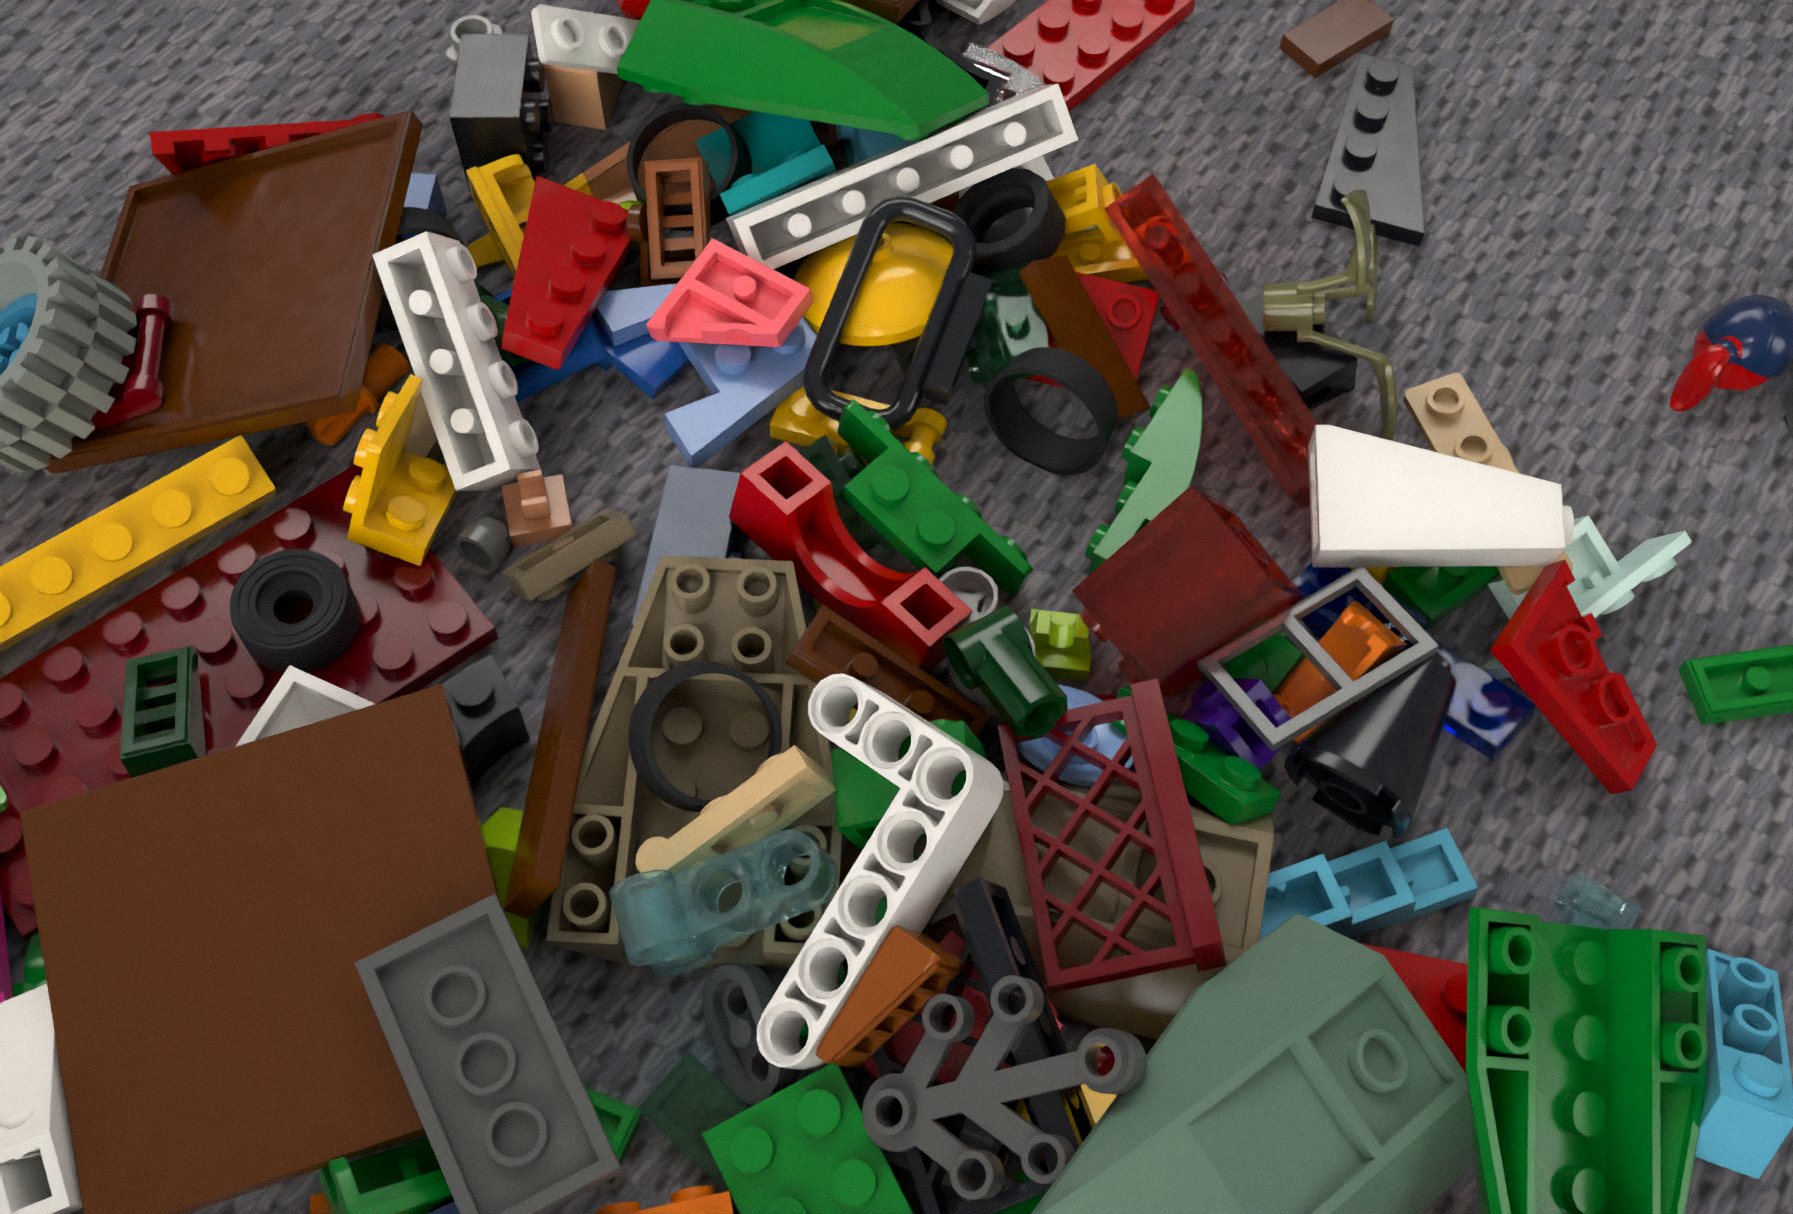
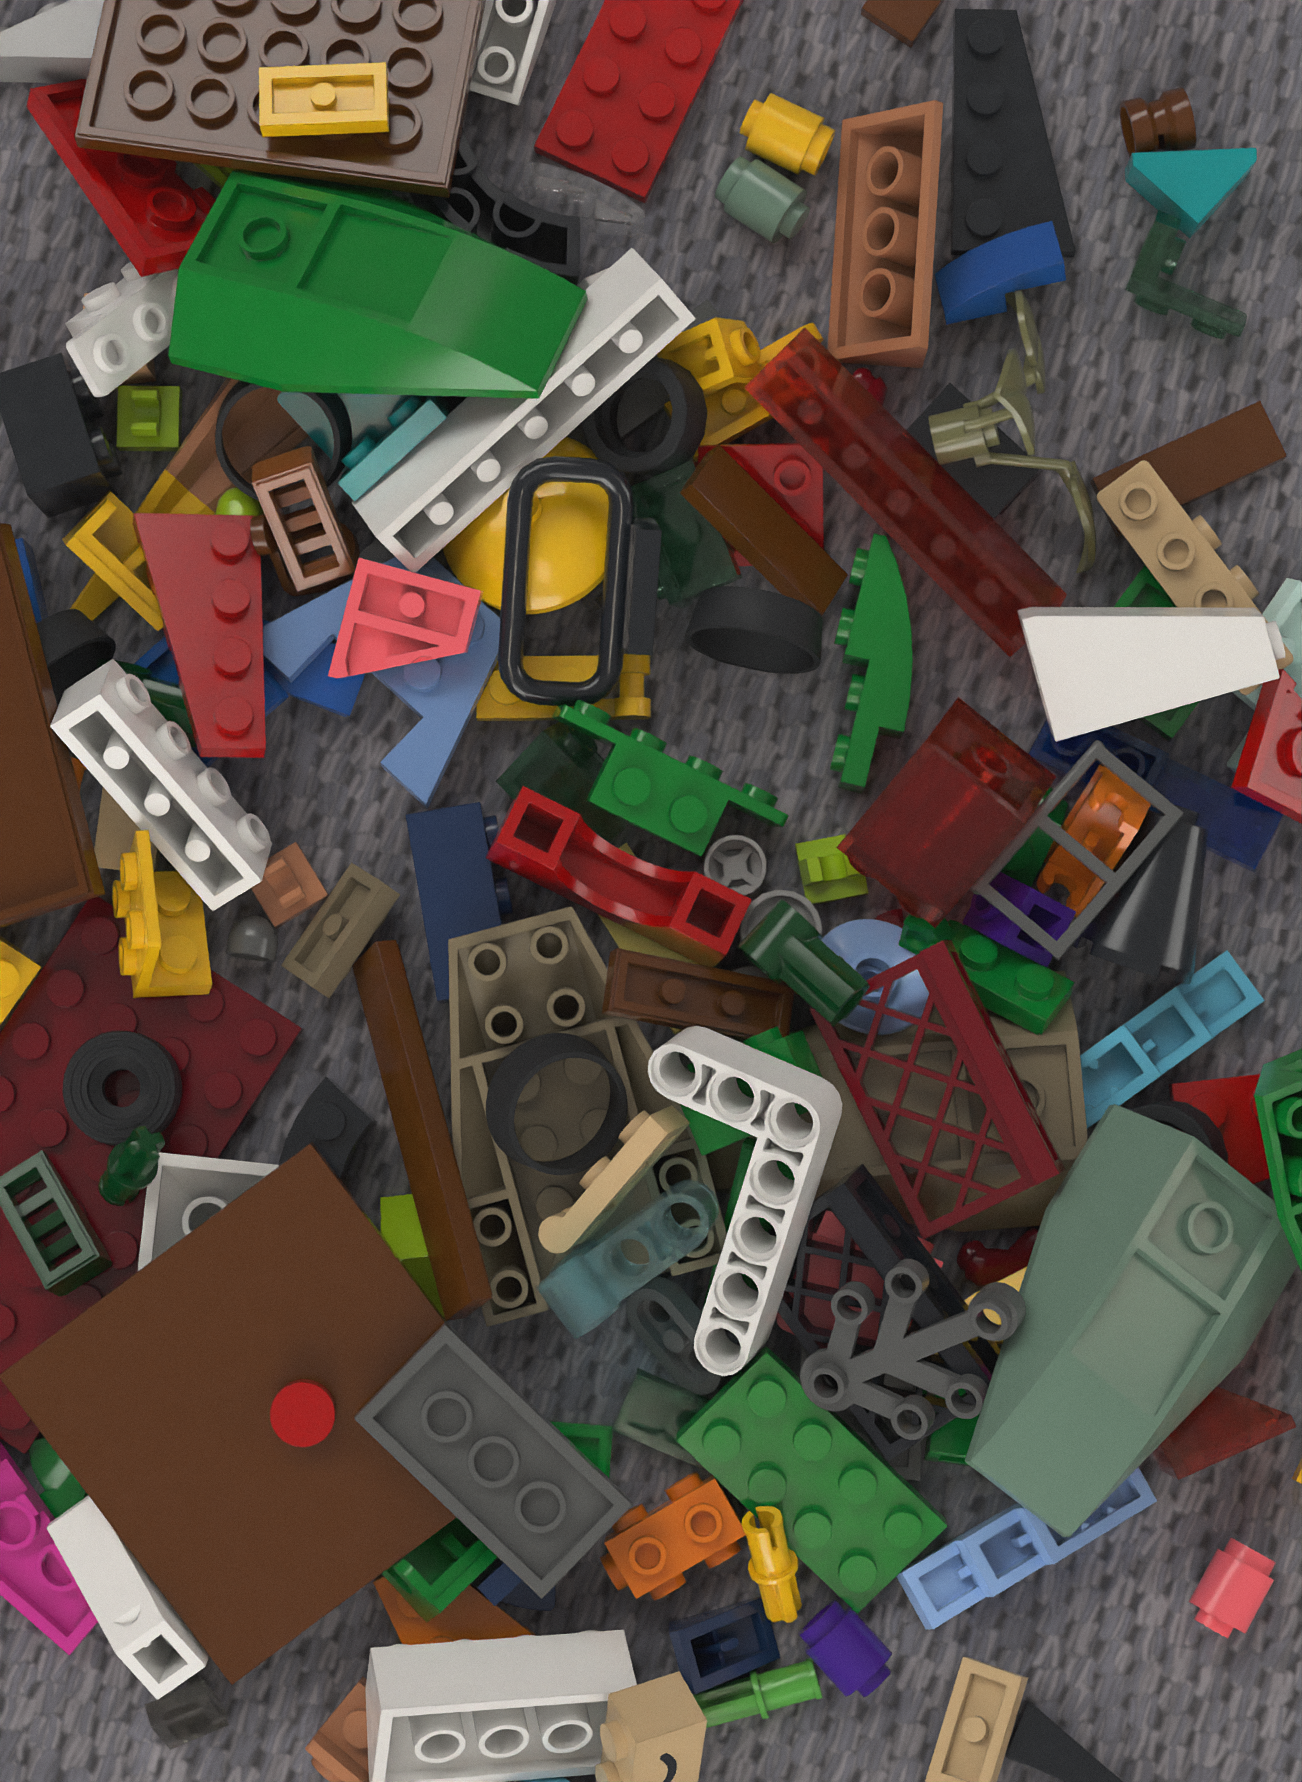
camera: 15 degrees left, 25 degrees up
(262, 662) = (131, 1166): none -> dark green axle
(307, 949) = (303, 1413): none -> red tile
(585, 141) = (149, 418): none -> lime tile
(890, 992) = (803, 1277): dark orange slope -> none
(1160, 130) = (763, 199): none -> sand green brick
(1195, 93) = (787, 134): none -> yellow brick
(1263, 178) = (885, 236): none -> nougat slope
(1334, 231) = (980, 278): none -> blue slope
(1504, 242) = (1158, 295): none -> clear green bracket
(1518, 164) = (1158, 124): none -> reddish brown wheel
(1520, 415) = (1209, 456): none -> reddish brown tile
(1539, 207) = (1189, 181): none -> teal slope

